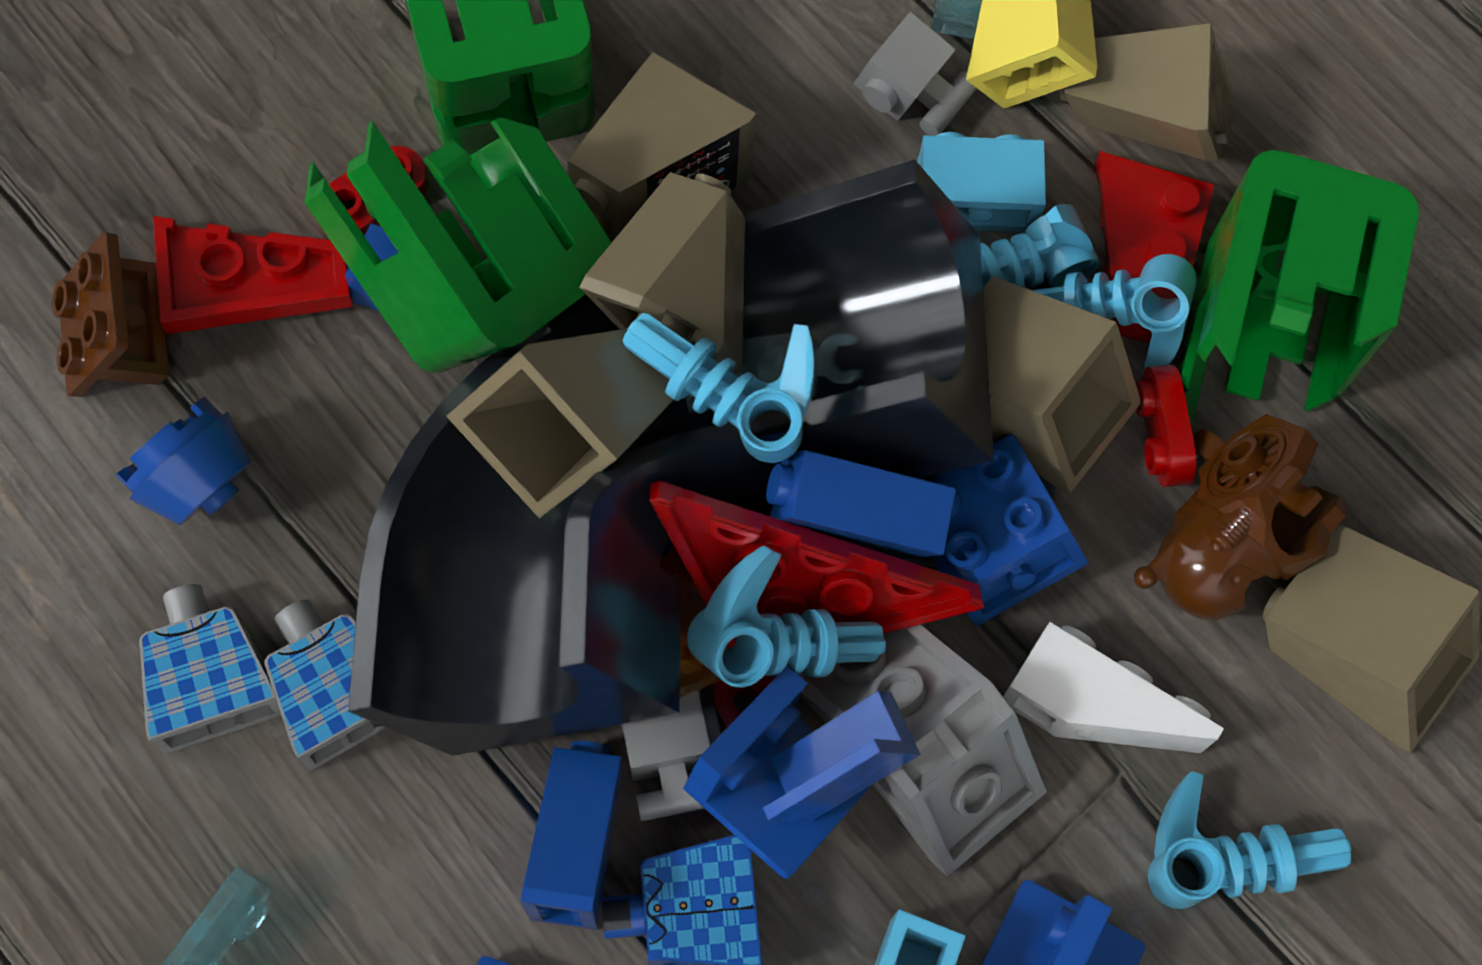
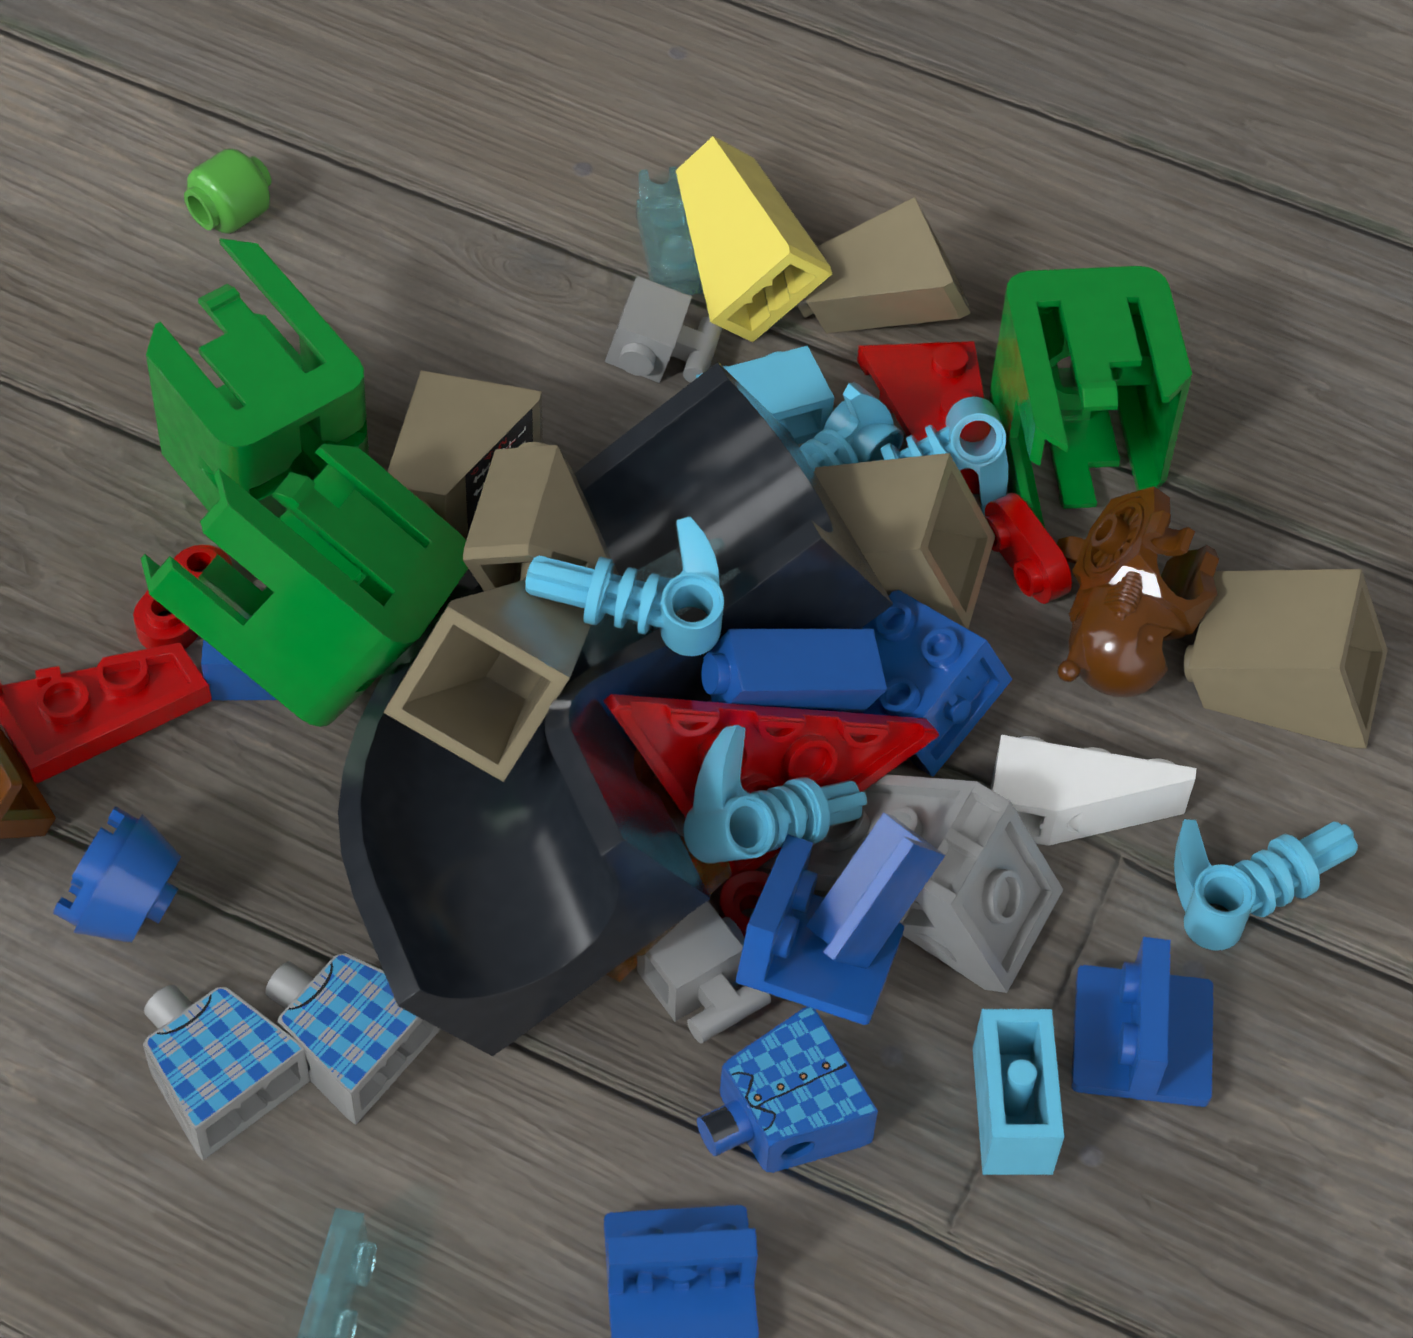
camera: 20 degrees left, 15 degrees down
(573, 836) = (651, 1077): blue slope -> none

